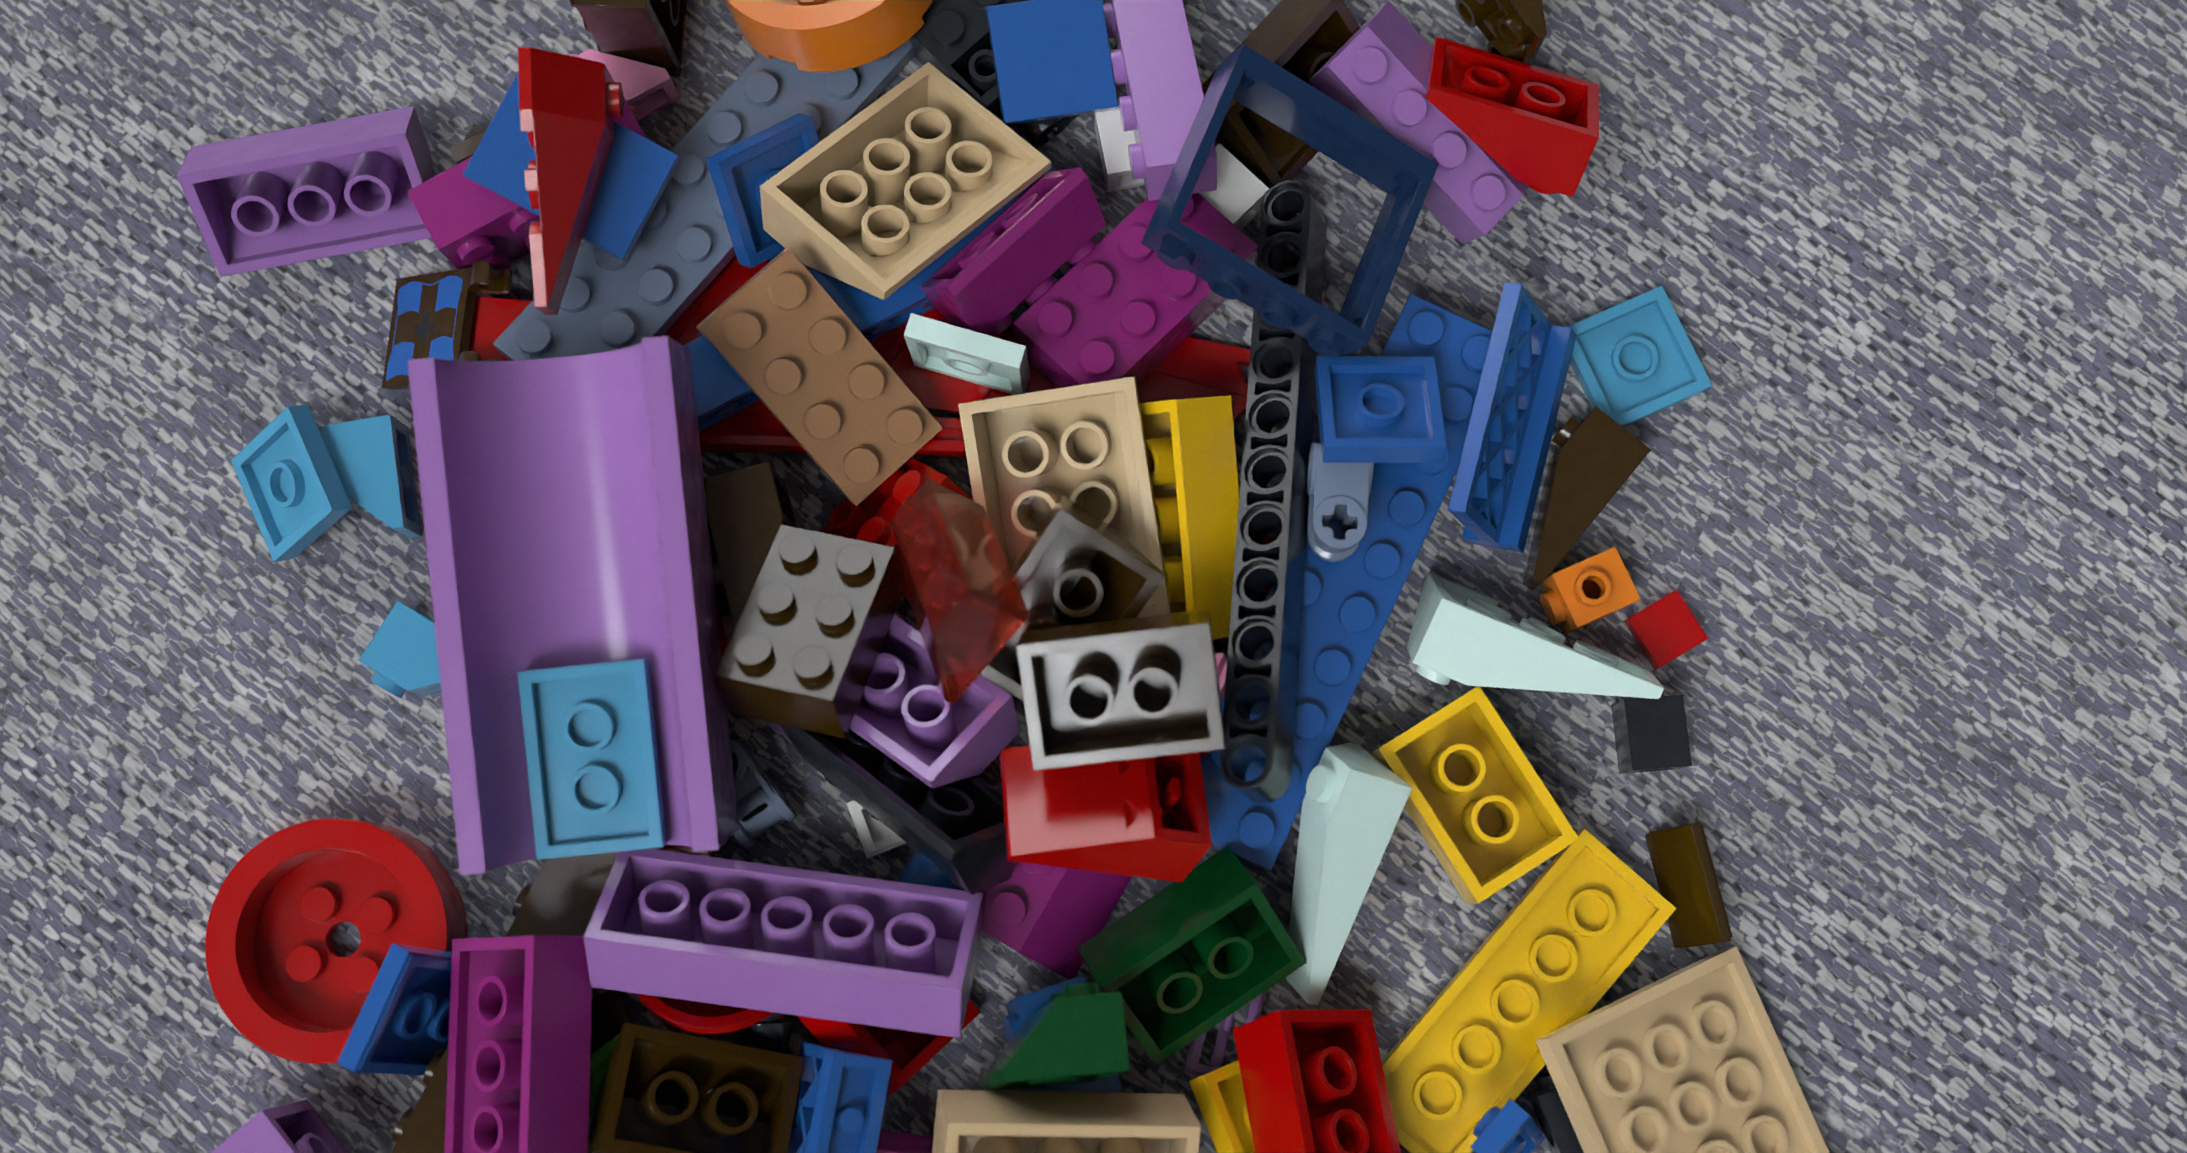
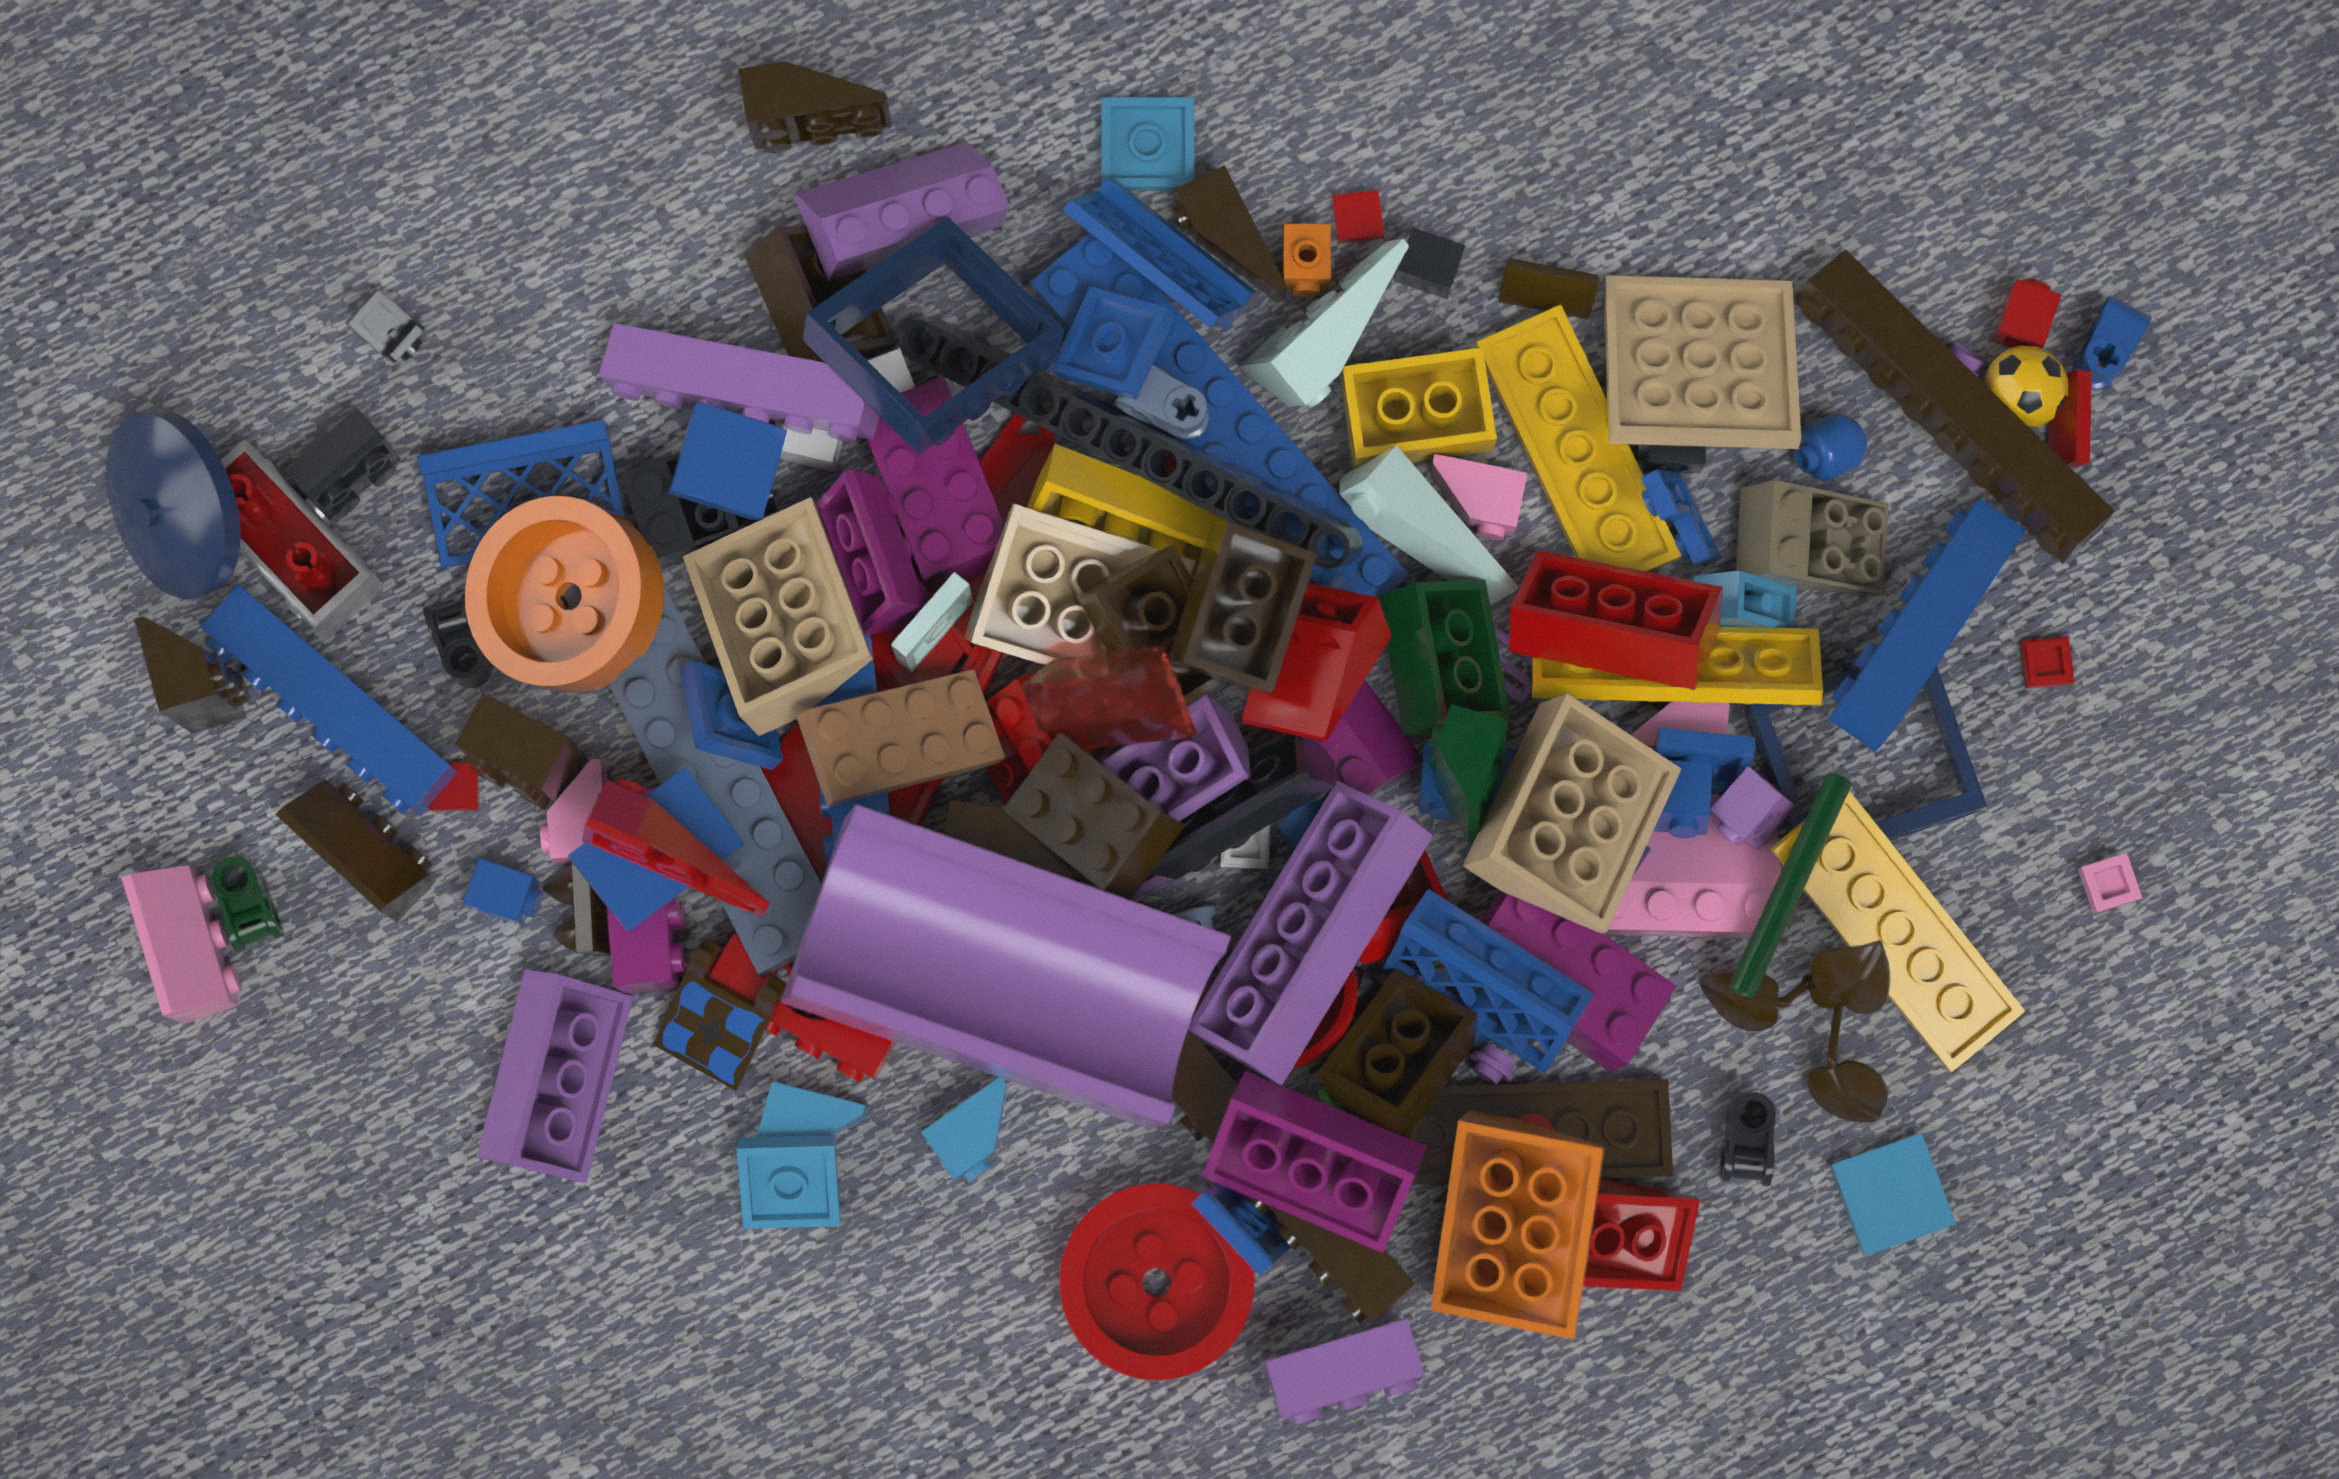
camera: 70 degrees left, 0 degrees up
(488, 46) = (503, 892): none -> blue brick
(592, 758) = (1121, 1007): dark azure plate -> none
(1408, 915) = (1481, 494): none -> bright pink slope
(1520, 114) = (928, 140): red slope -> none

